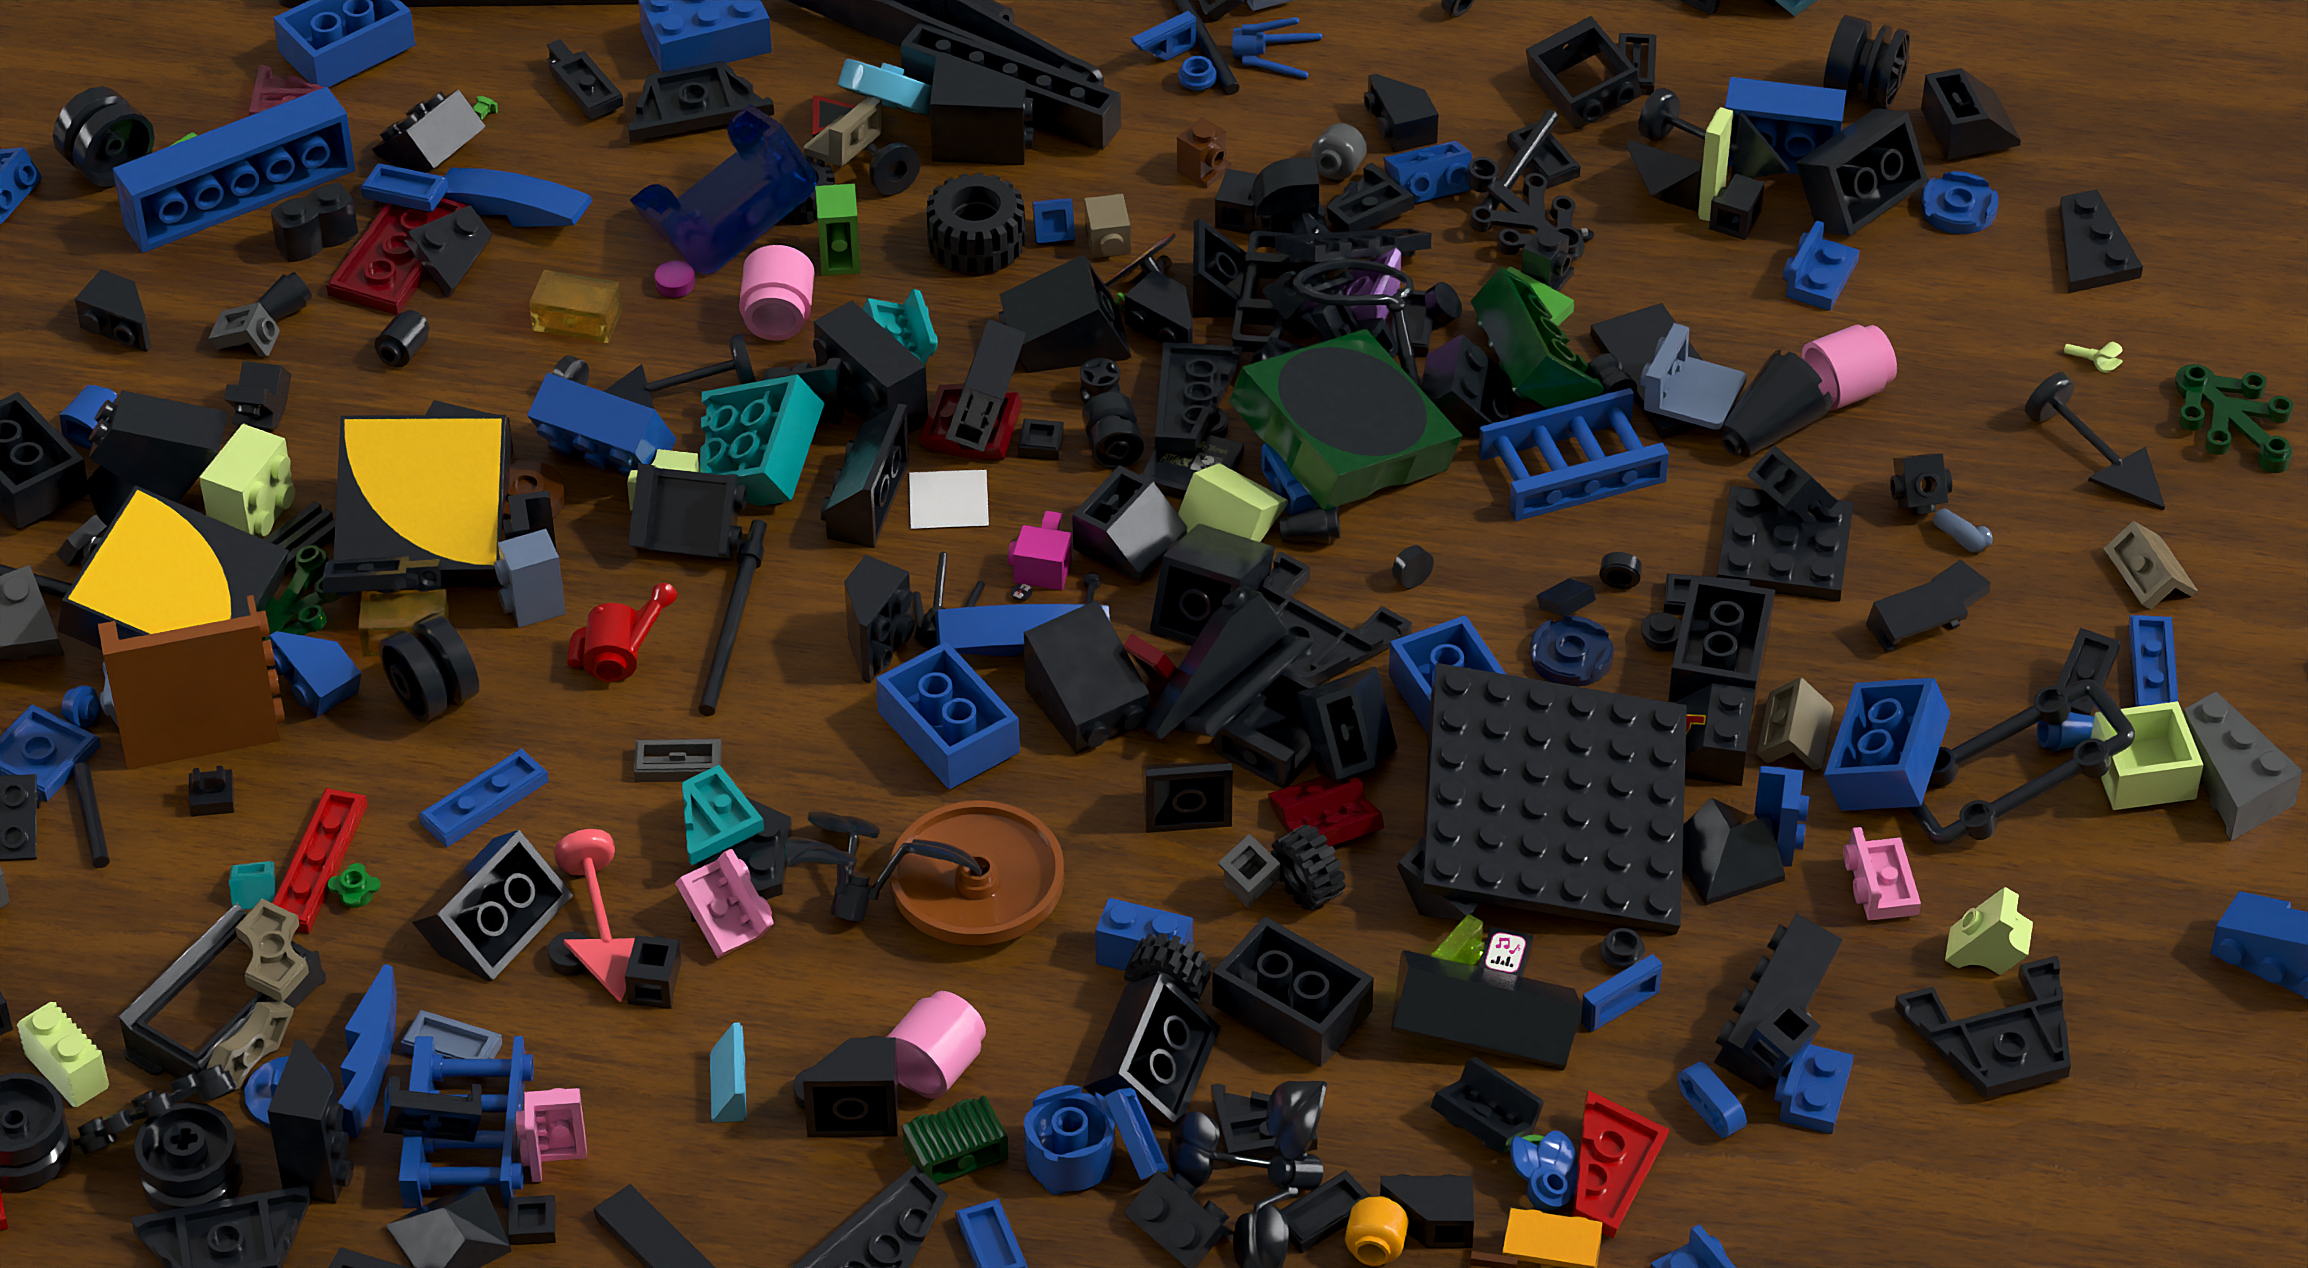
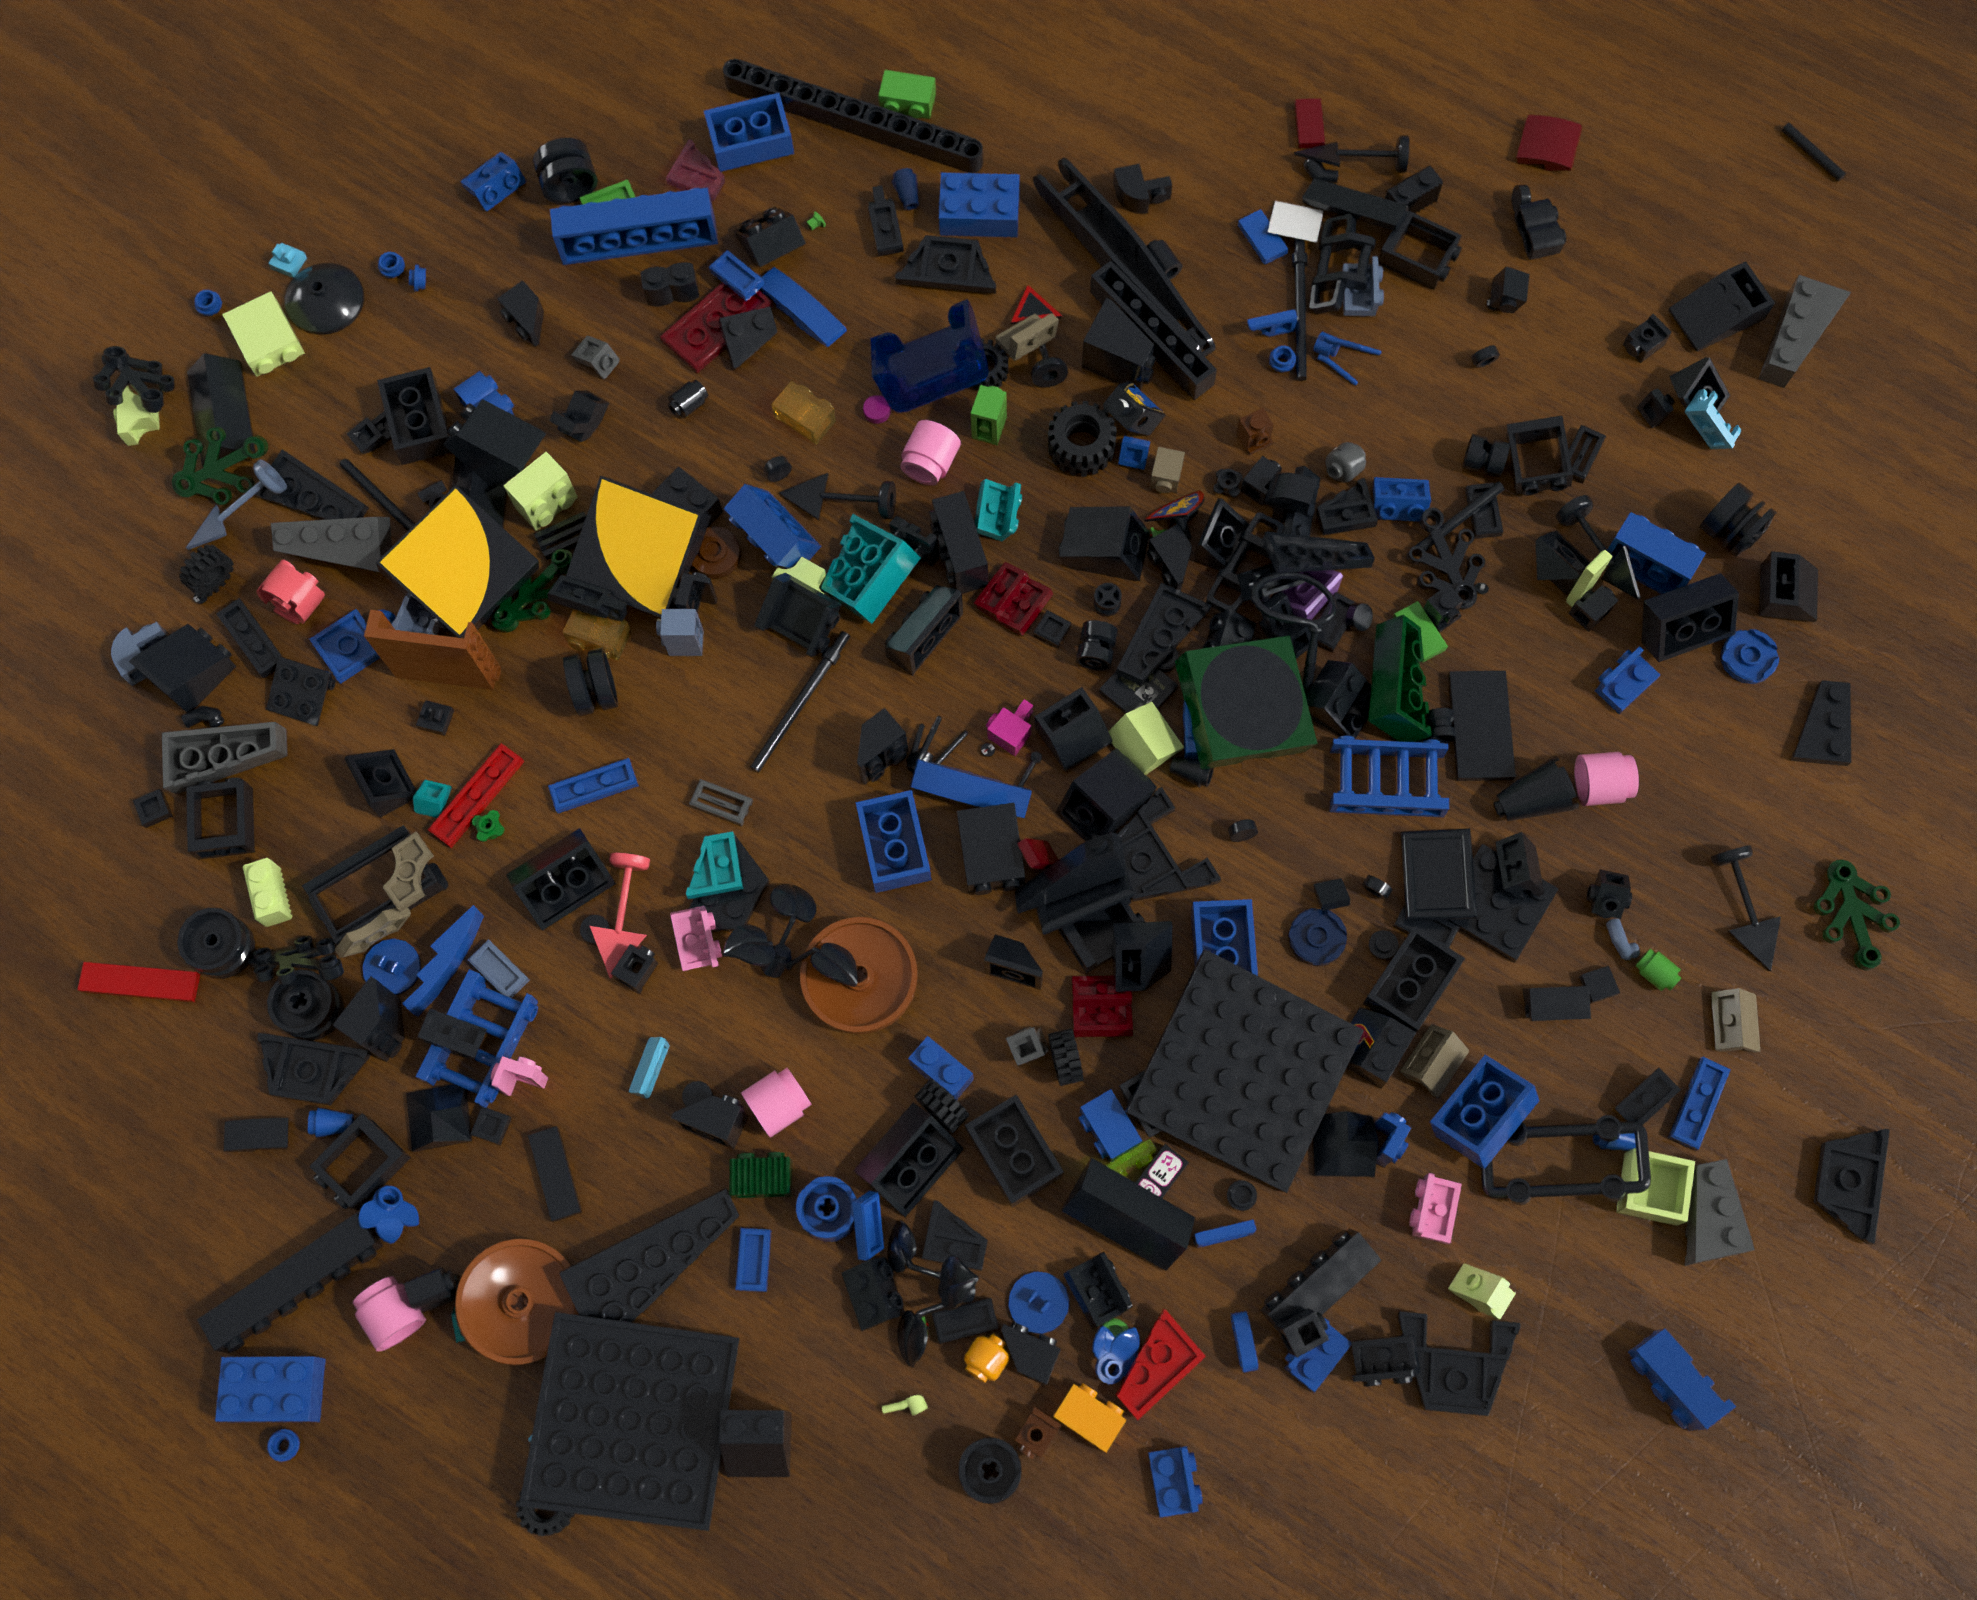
camera: 25 degrees right, 25 degrees up
(91, 815) = (359, 707): black bar -> none
(167, 883) = (382, 780): none -> black slope
(285, 296) = (628, 338): black cone -> none
(316, 670) = (527, 653): blue slope -> none
(591, 34) = (906, 187): none -> dark blue cone
(614, 635) = (714, 696): red piece -> none
(886, 84) = (1067, 305): medium azure wheel -> none
(948, 499) = (975, 654): white sticker -> none
(986, 385) = (1024, 587): black window -> none
(1027, 170) = (1130, 405): none -> black torso
(1189, 212) = (1228, 475): none -> black plate
(1402, 113) = (1403, 444): black slope -> none
(1402, 921) = (1109, 1126): none -> blue brick
(1413, 1151) = (1039, 1302): none -> blue piece
(1515, 92) = (1486, 455): none -> black wheel
(1689, 386) = (1491, 755): sand blue bracket -> none
(1692, 530) = (1438, 875): none -> black piece
(1905, 1048) = (1385, 1359): none -> black bracket
(2025, 542) = (1658, 970): none -> bright green brick
(2103, 359) = (1787, 830): yellowish green hand -> none

